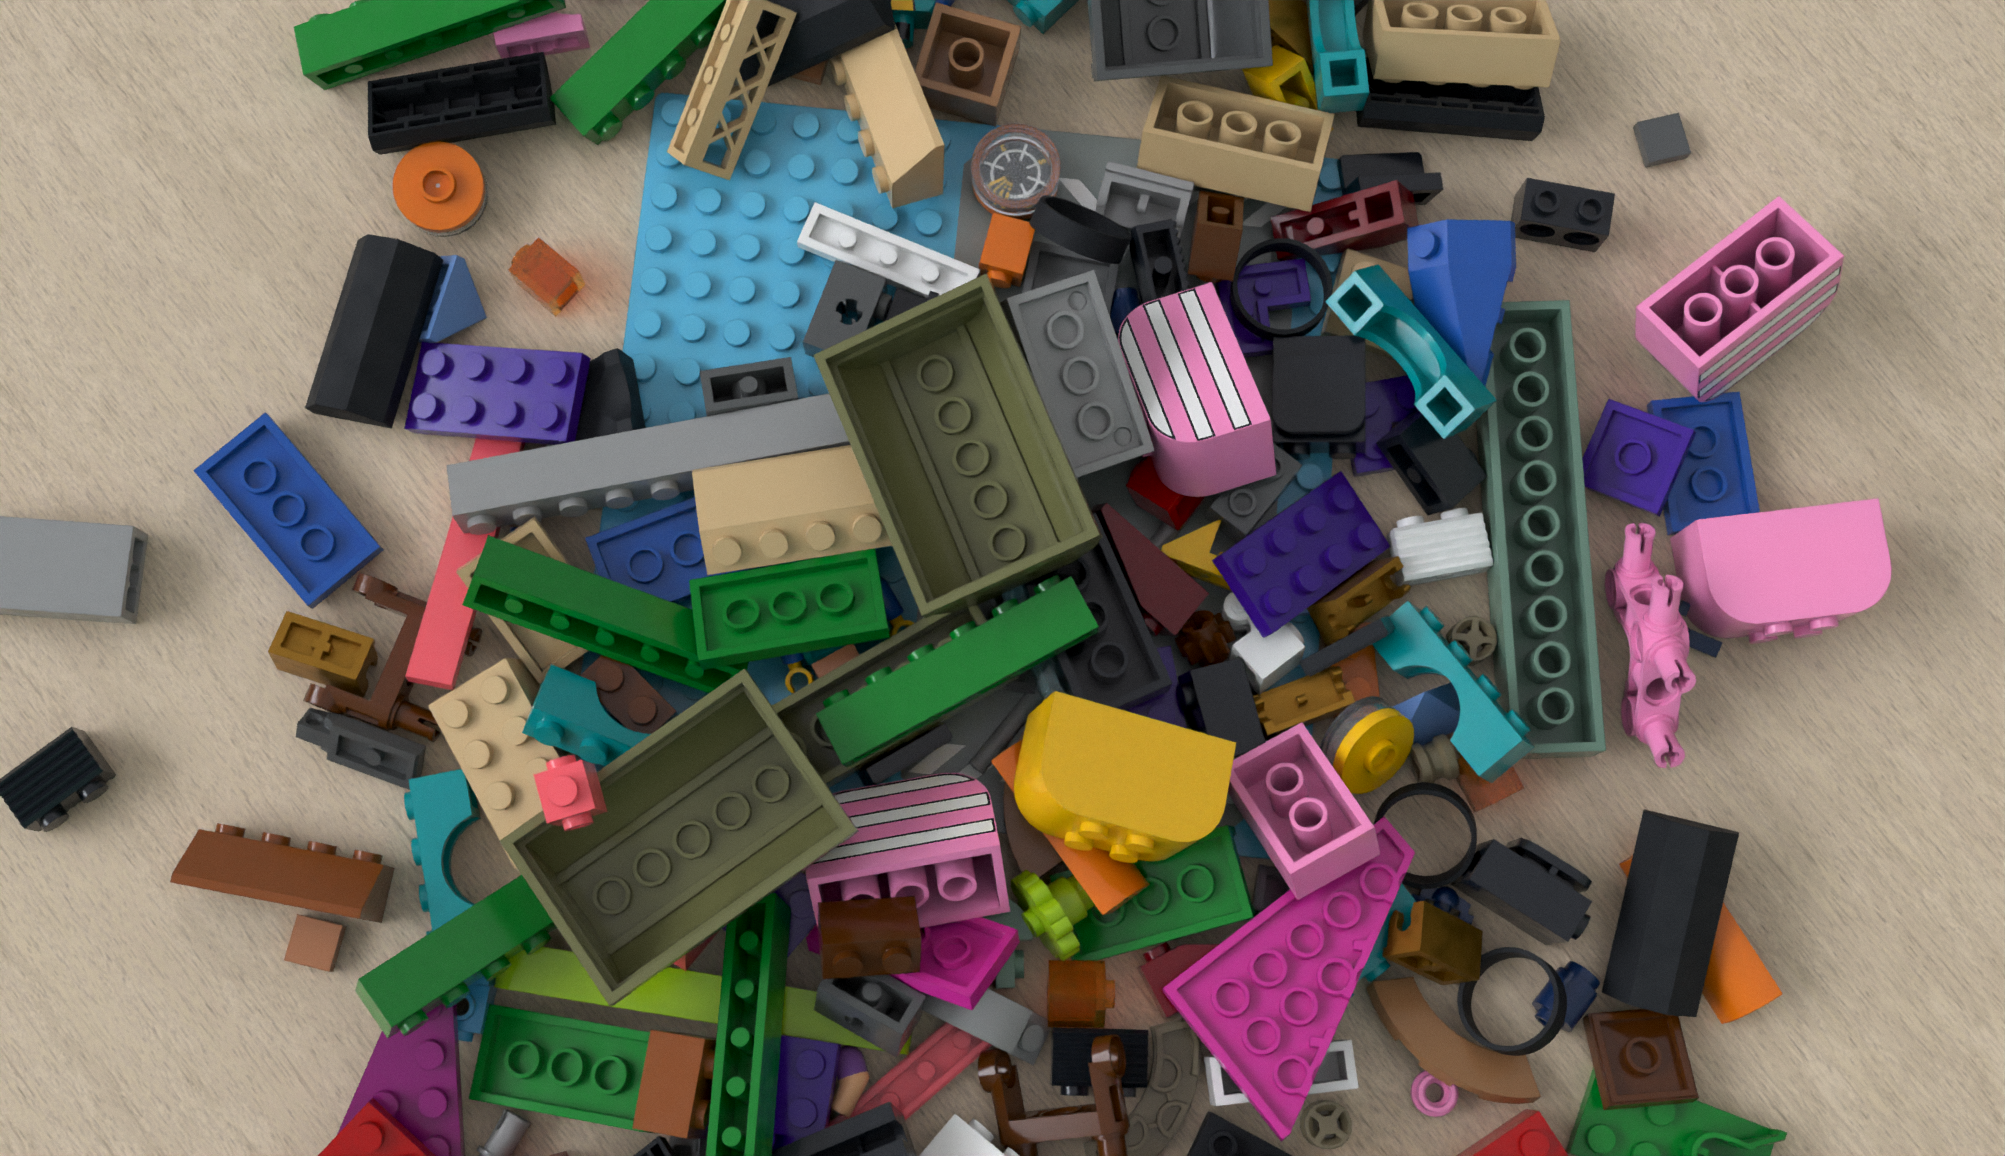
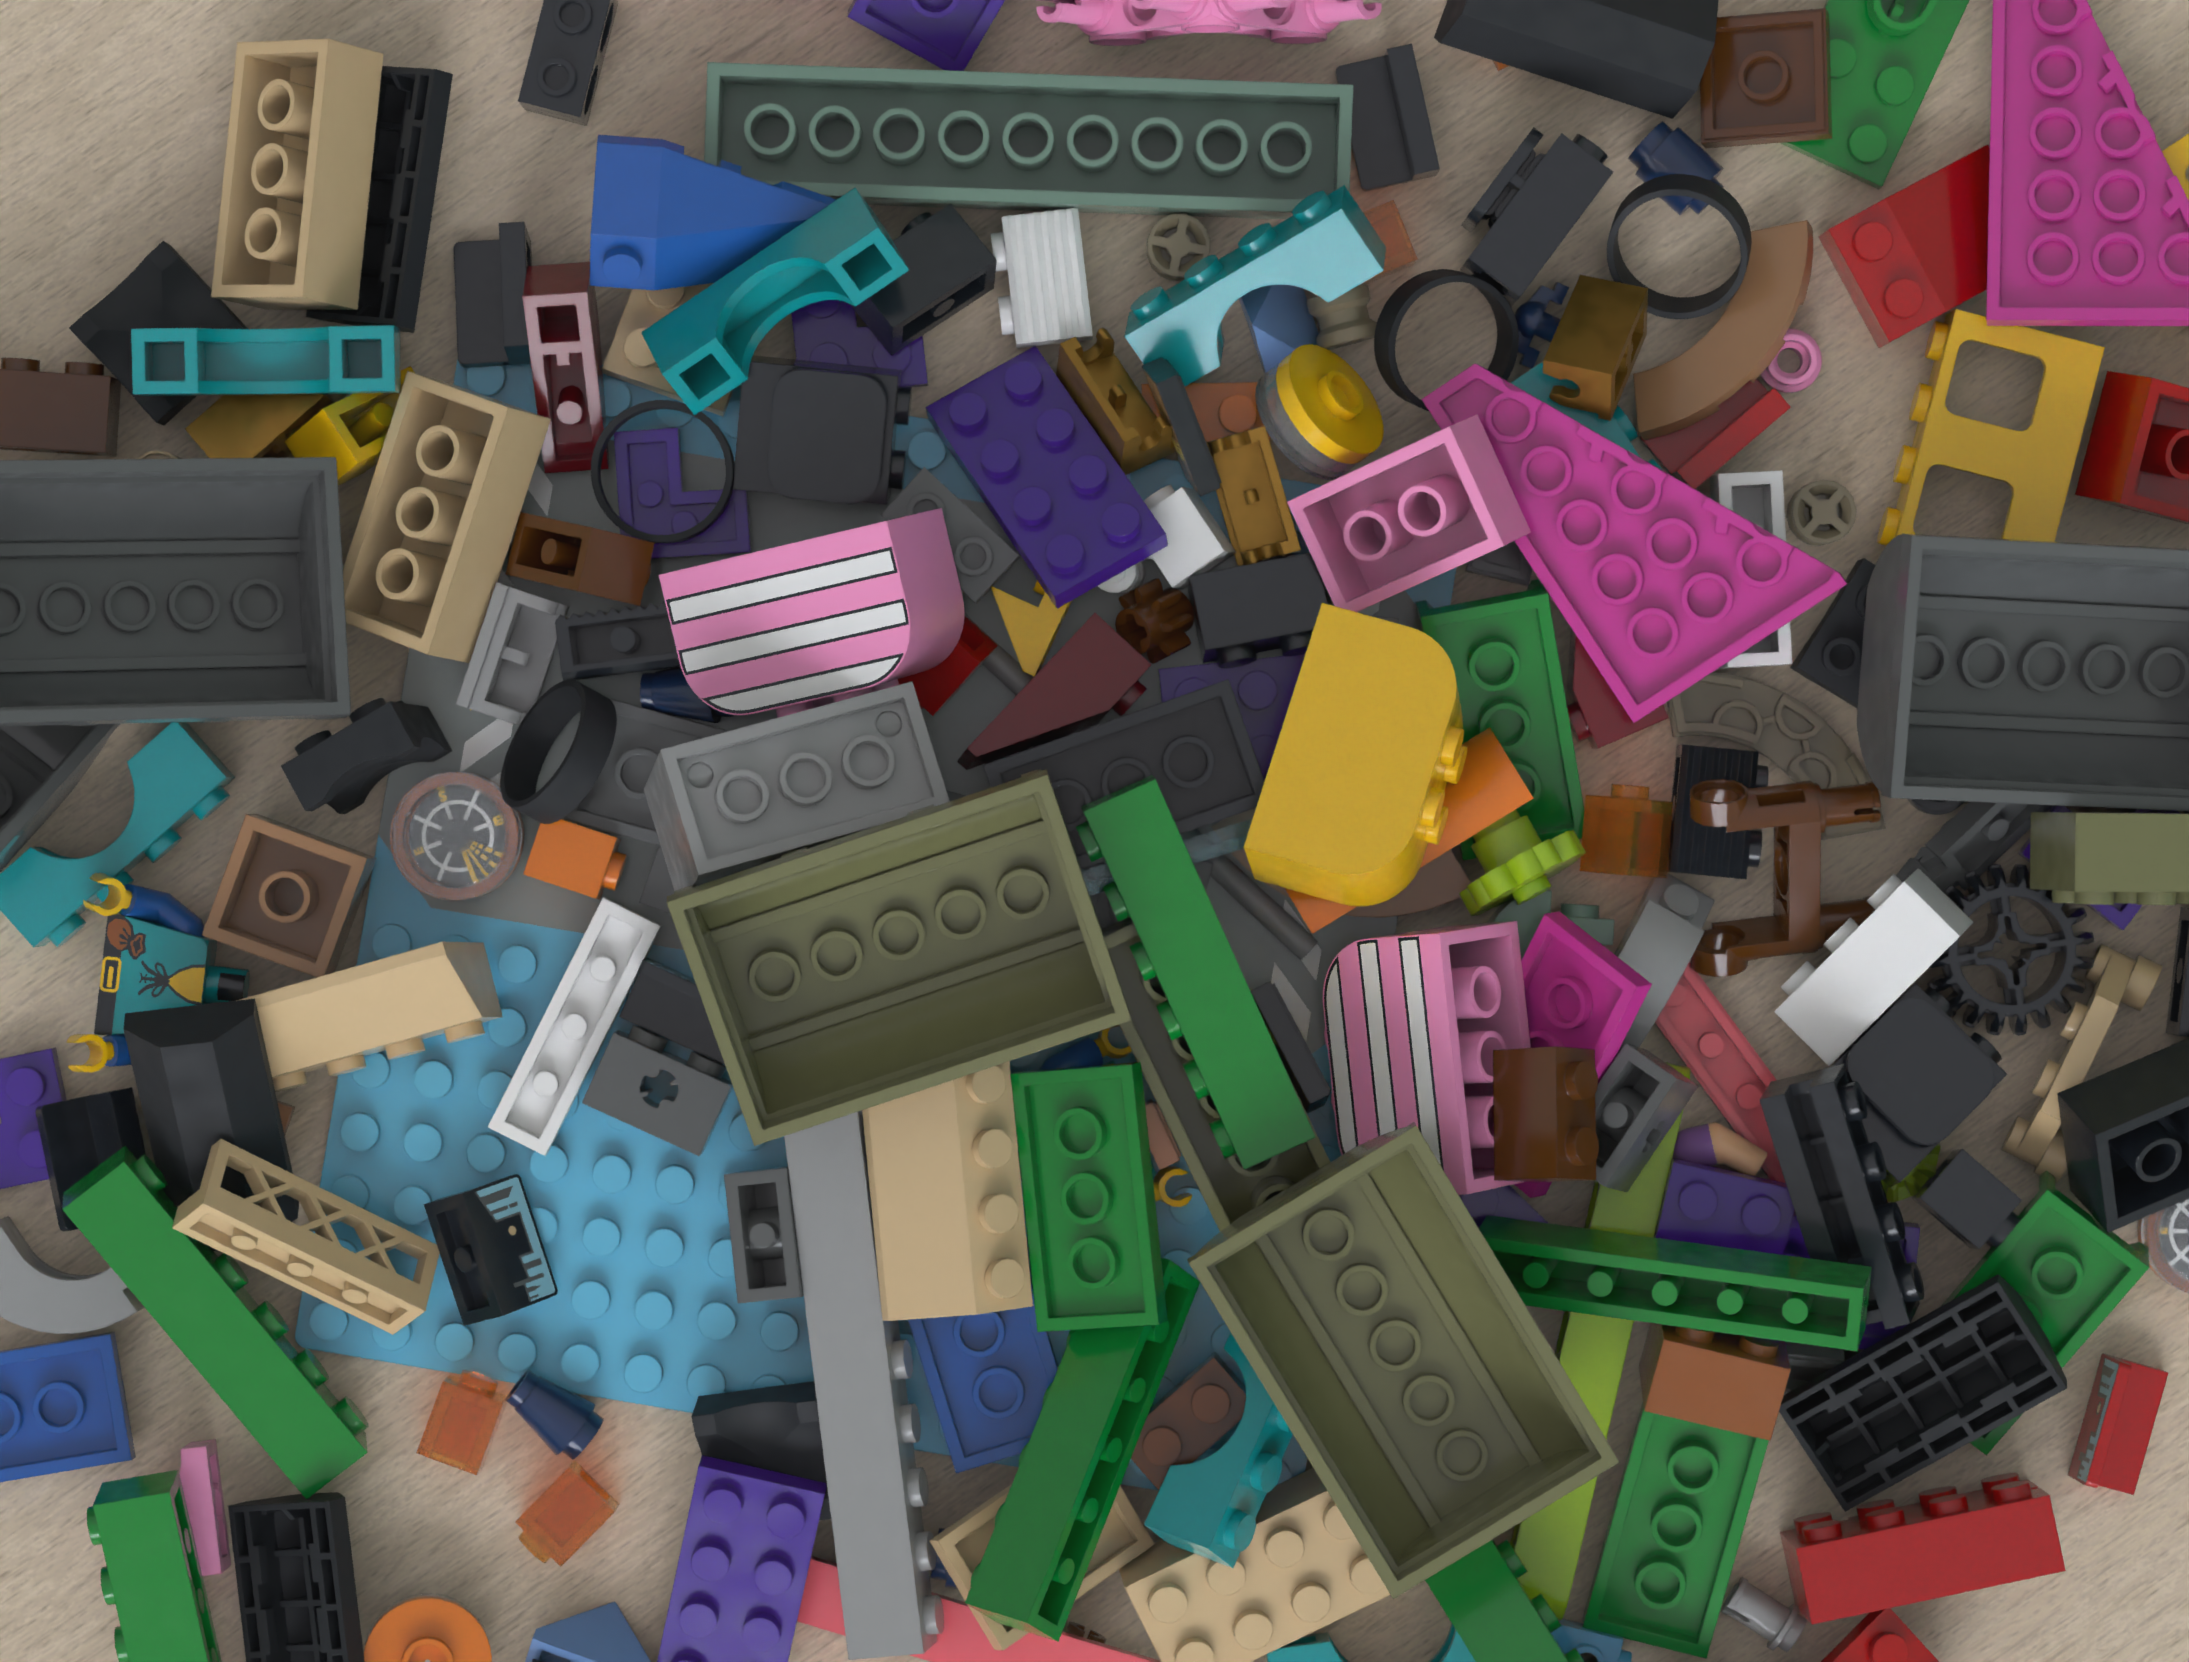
camera: 80 degrees left, 10 degrees up
(570, 792) = (1344, 1501): coral brick -> none
(607, 203) = (463, 1421): none -> clear orange brick
(616, 264) = (555, 1414): none -> dark blue cone
(730, 213) = (491, 1250): none -> black panel
(1067, 103) = (352, 761): none -> black brick
(1375, 1044) = (1707, 445): none -> red panel
(1576, 785) = (1389, 120): none -> black panel

